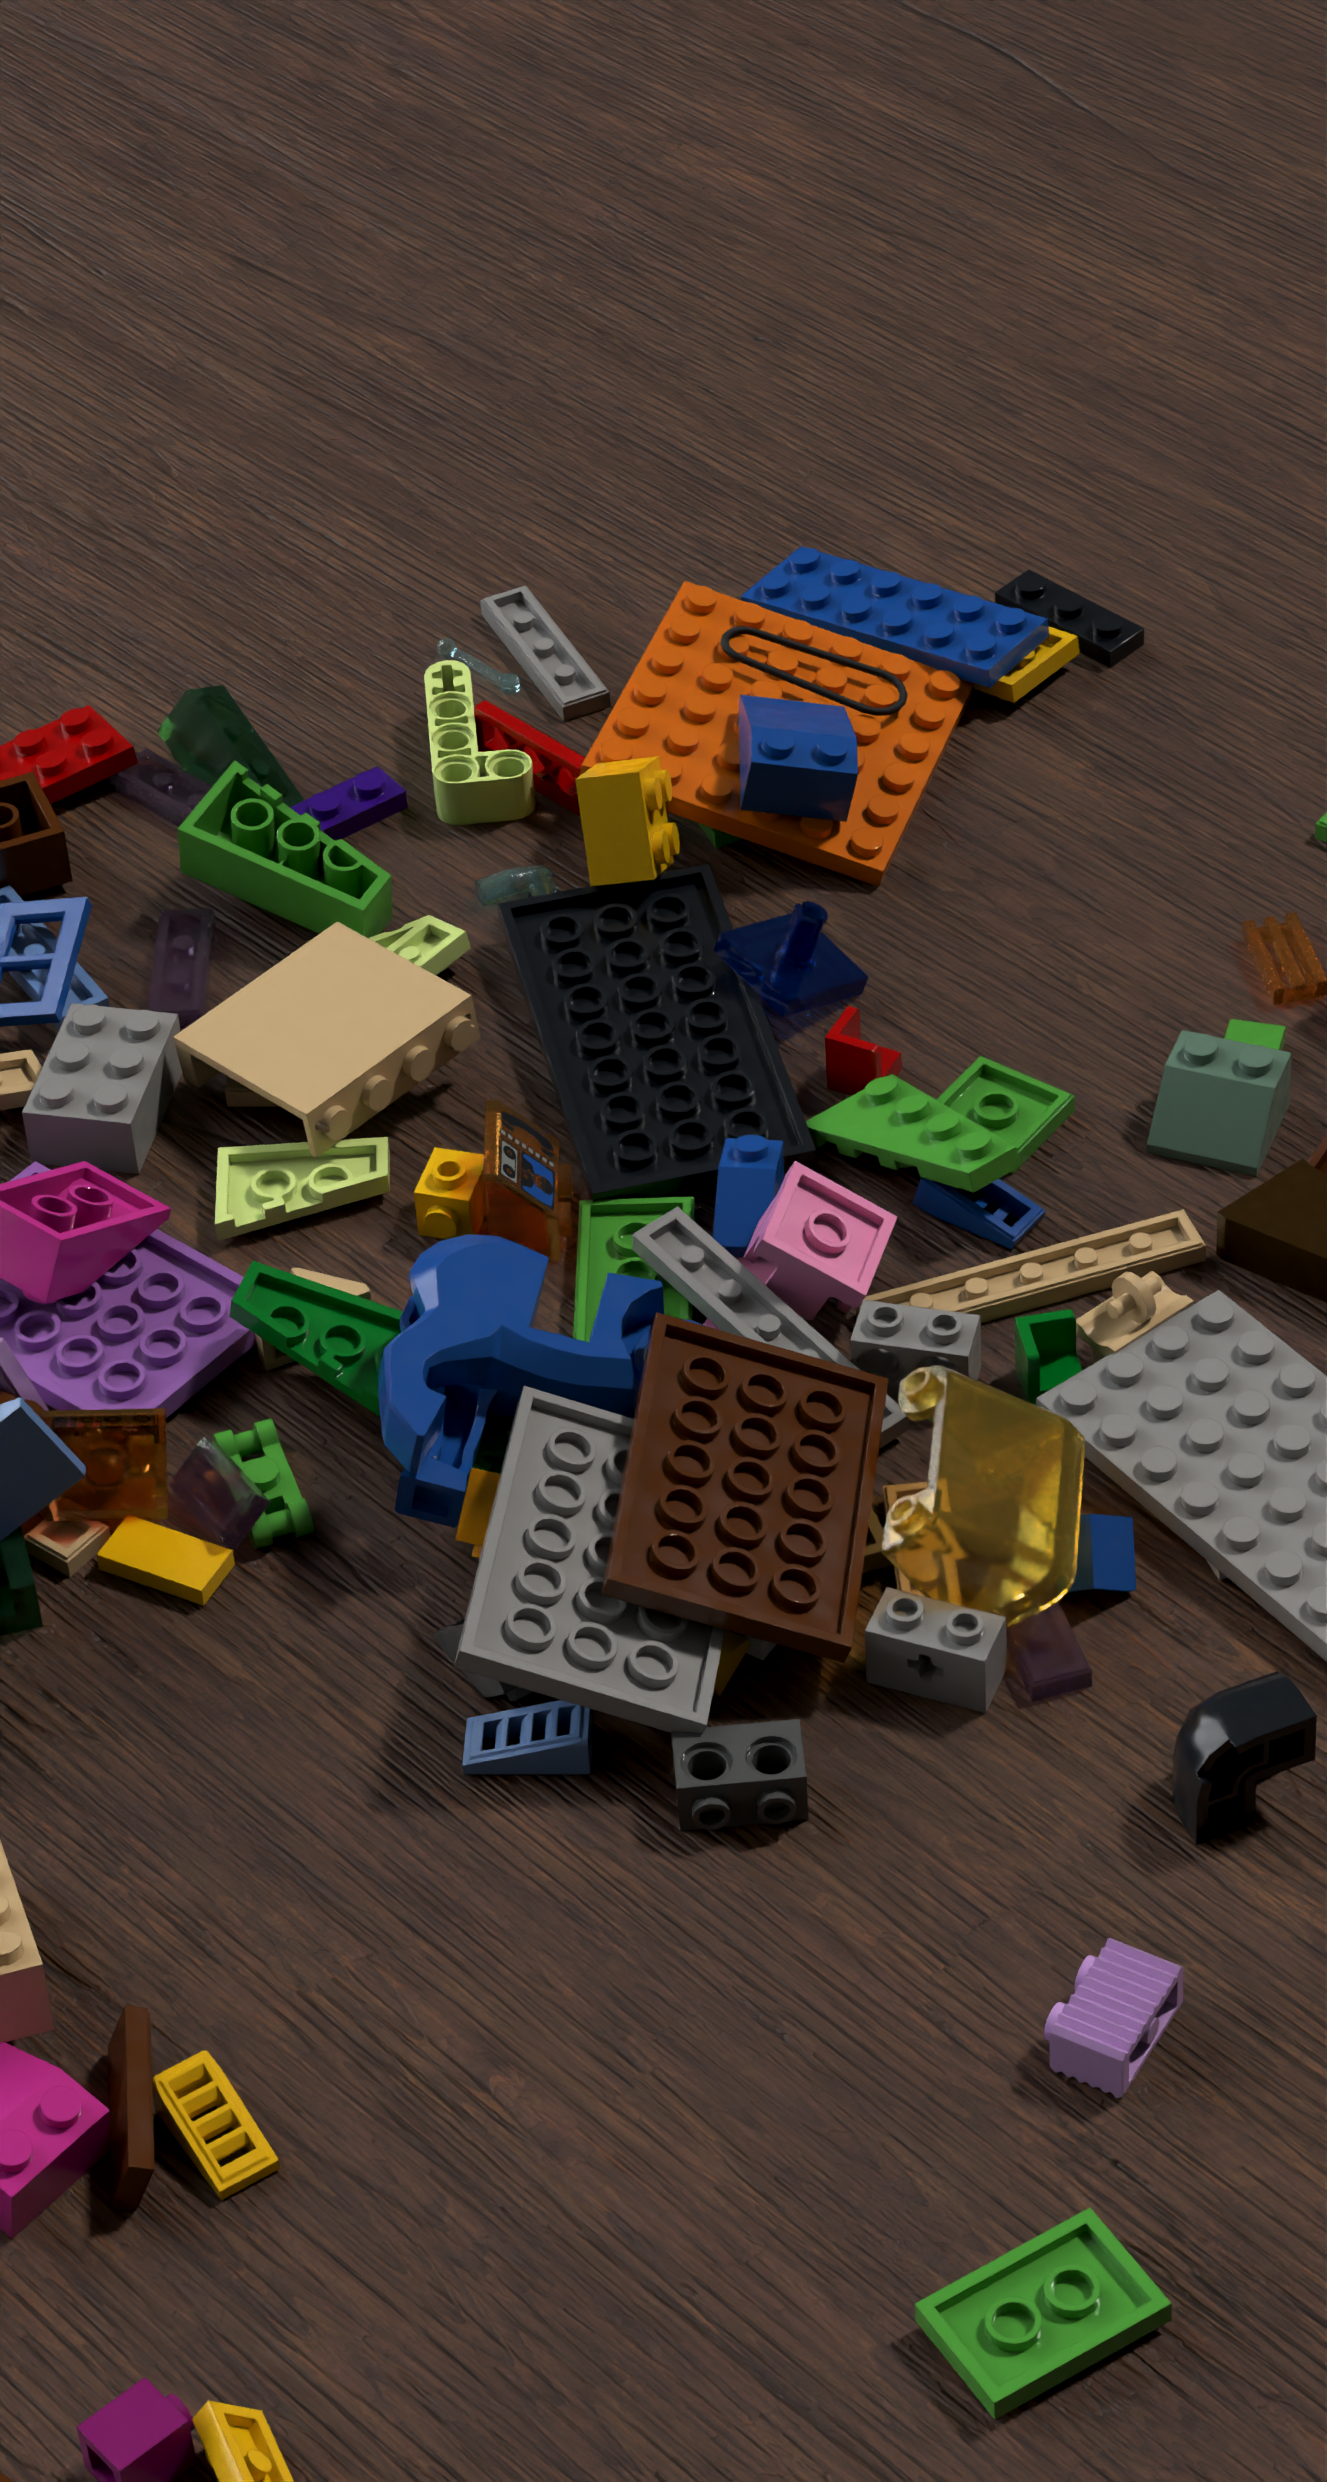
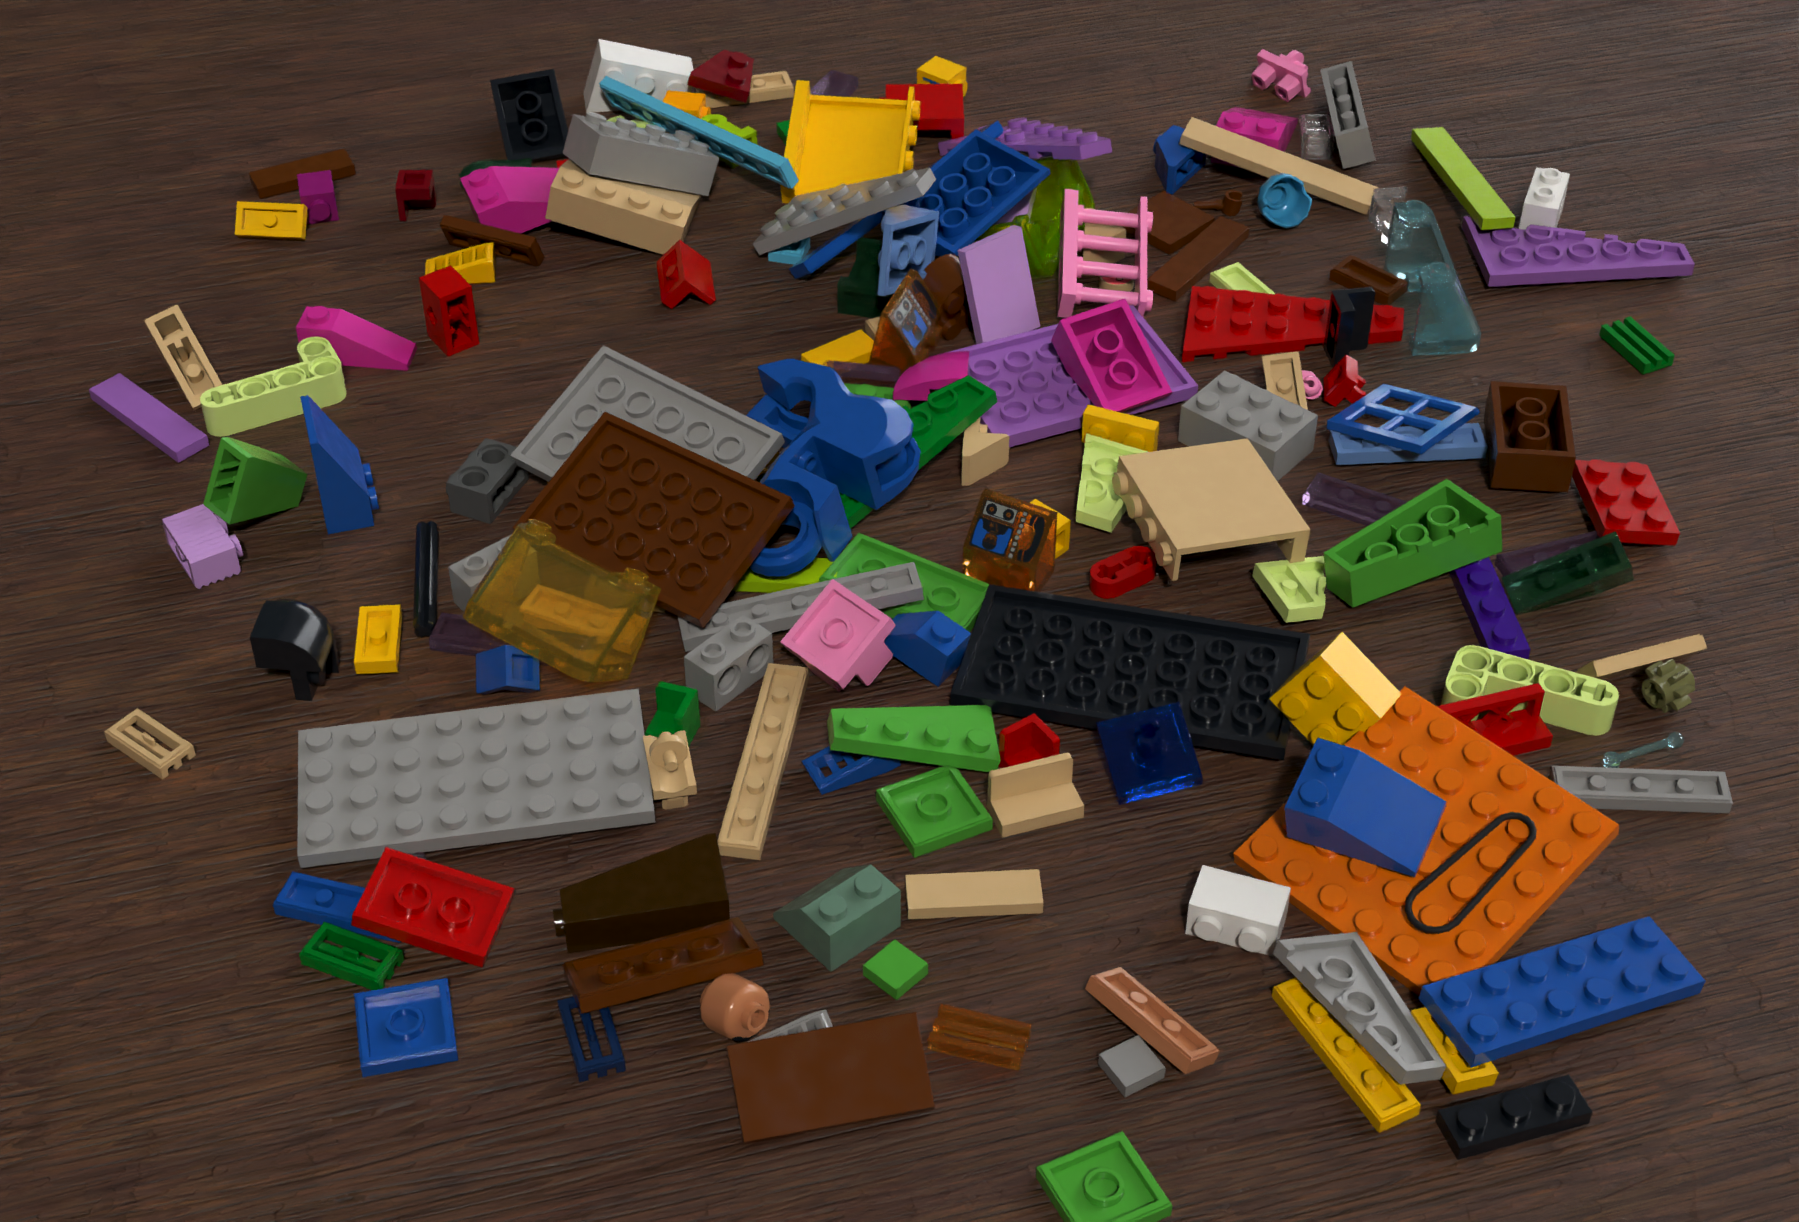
camera: 115 degrees right, 0 degrees up
(58, 2286) = (414, 189): none -> dark red panel
(82, 1822) = (682, 272): none -> red panel
(188, 1184) = (1120, 428): none -> yellow plate
(196, 1387) = (930, 374): none -> dark pink brick
(344, 683) = (1644, 657): none -> tan tile
(378, 653) = (1668, 685): none -> olive gear
(395, 2007) = (449, 310): none -> red brick
(453, 1110) = (1122, 572): none -> red beam
(525, 2143) = (356, 340): none -> dark pink slope
(717, 2326) = (182, 354): none -> tan slope
(727, 2147) = (277, 392): none -> yellowish green beam
(874, 2310) = (149, 417): none -> medium lavender tile
(890, 1905) = (339, 473): none -> blue slope
(920, 1036) = (1033, 795): none -> tan panel
(971, 836) = (1237, 910): none -> white brick
(974, 1748) = (425, 579): none -> black axle
(982, 1970) = (251, 482): none -> bright green slope
(1021, 724) = (1361, 997): none -> light grey wing
(1042, 2312) = (79, 458): bright green plate -> none
(1078, 735) = (1357, 1071): none -> yellow tile
(1097, 1034) = (974, 894): none -> tan tile
(1131, 1718) = (378, 639): none -> yellow plate
(1161, 851) = (1152, 1020): none -> nougat tile
(1226, 851) = (1131, 1066): none -> light grey tile

